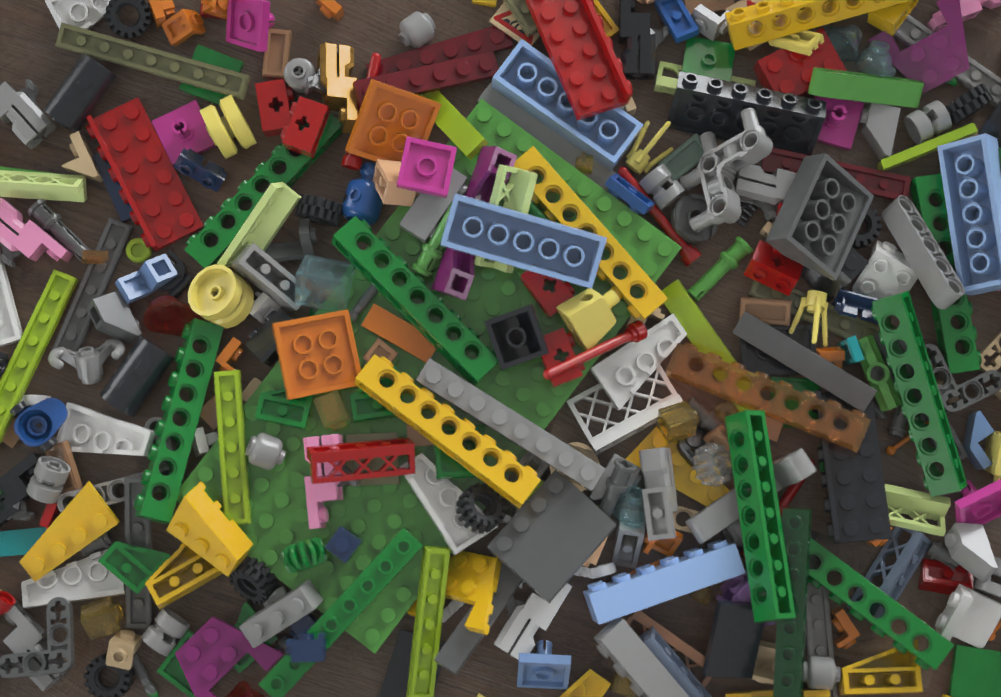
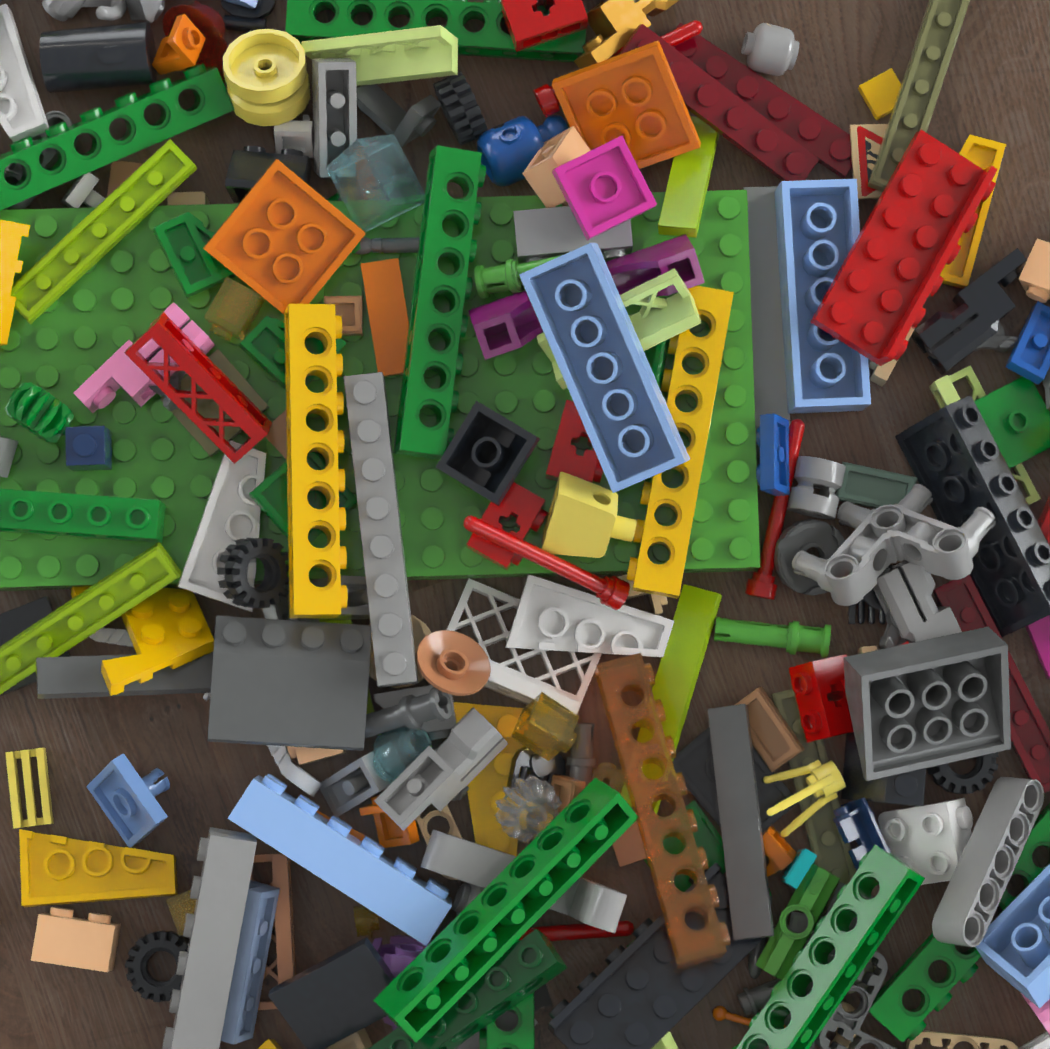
camera: 55 degrees right, 0 degrees up
(168, 329) = (179, 48): none -> orange bracket
(231, 352) = (211, 142): orange bracket -> none
(265, 451) = (124, 271): light grey head -> none
(525, 619) = (172, 733): white plate -> none
(584, 163) = (768, 373): clear yellow plate -> none
(608, 442) = (453, 662): none -> nougat dish
(639, 160) = (827, 435): light yellow plant -> none

